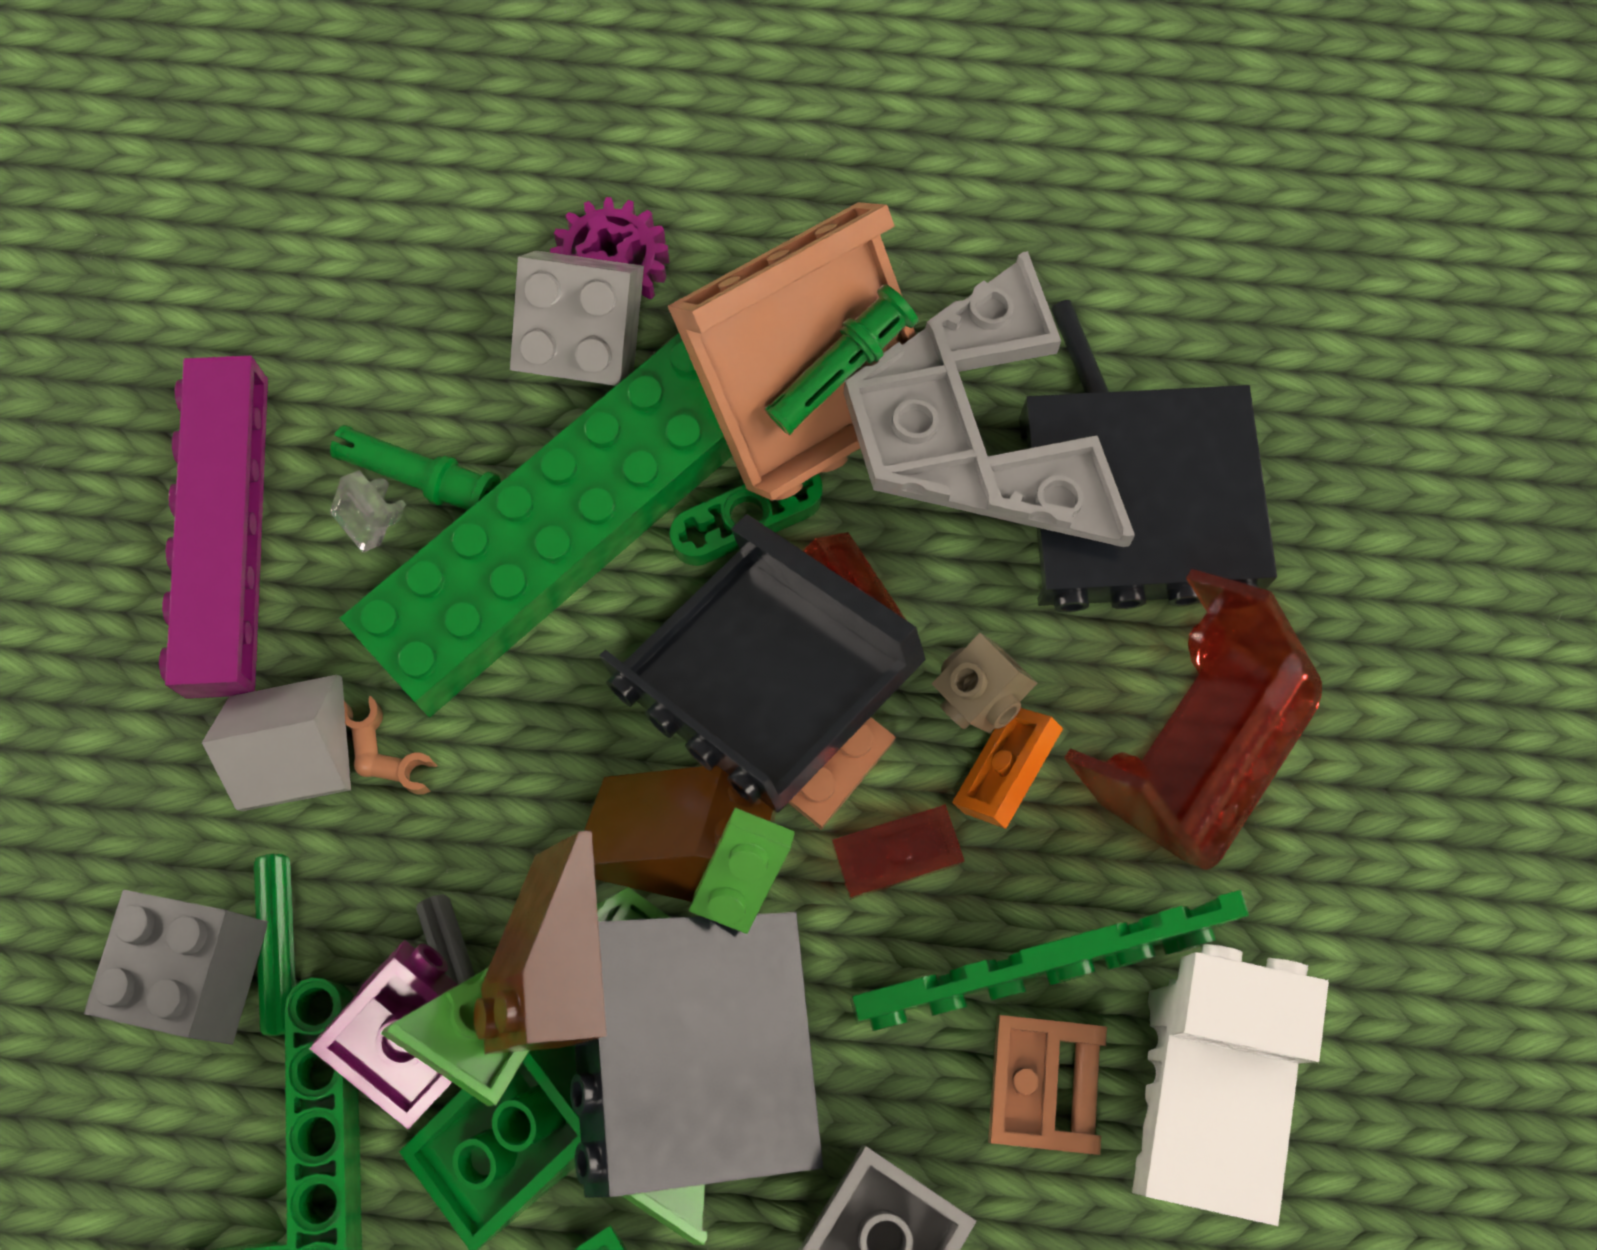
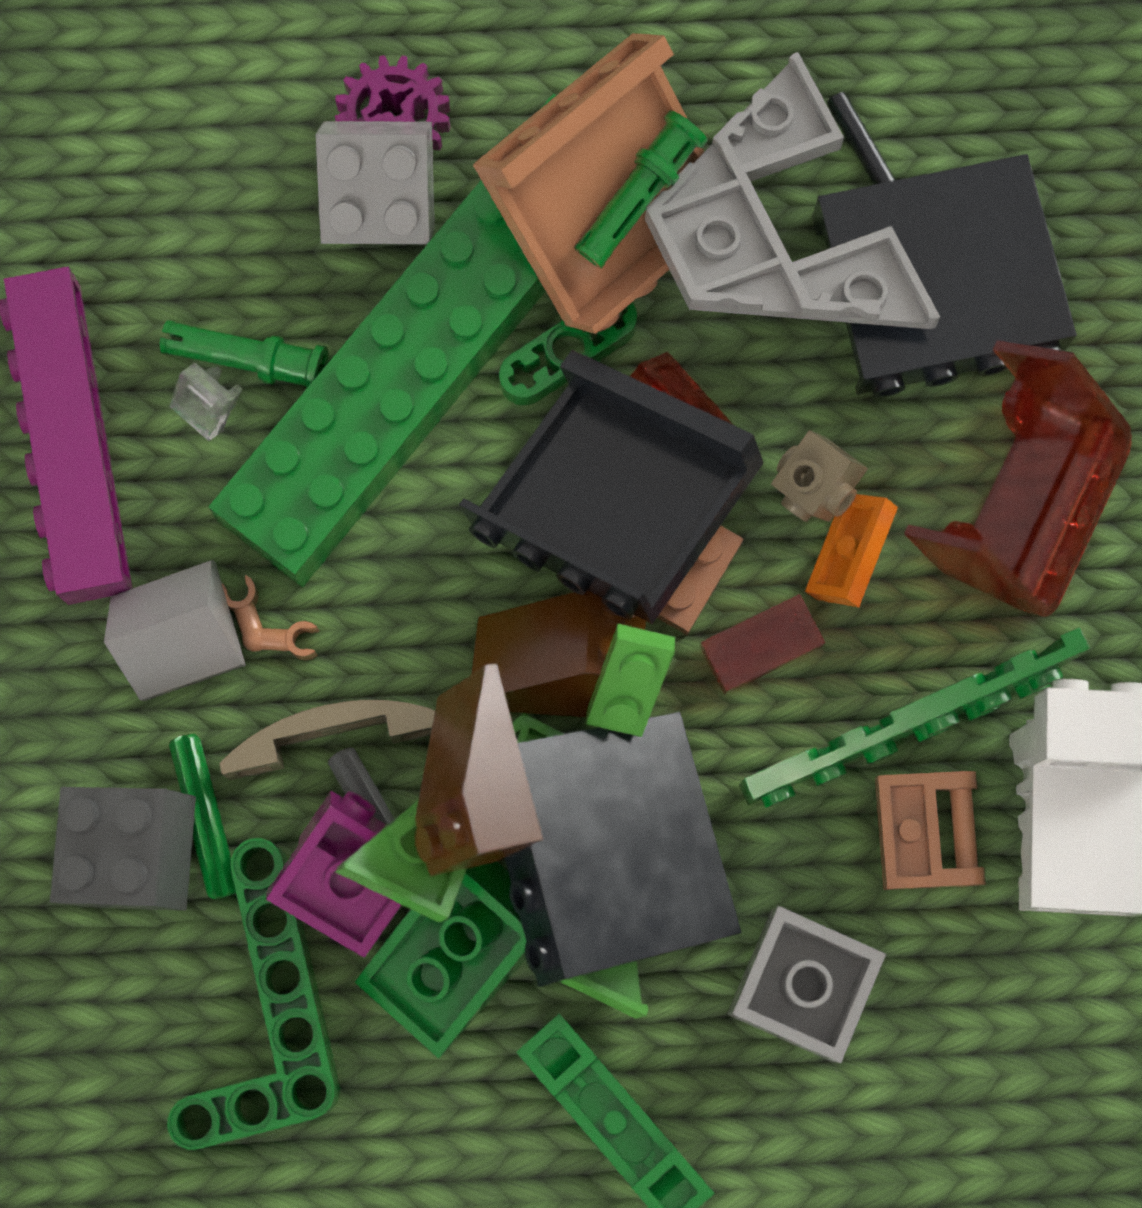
camera: 10 degrees left, 5 degrees up
(353, 881) = (263, 750): none -> dark tan slope

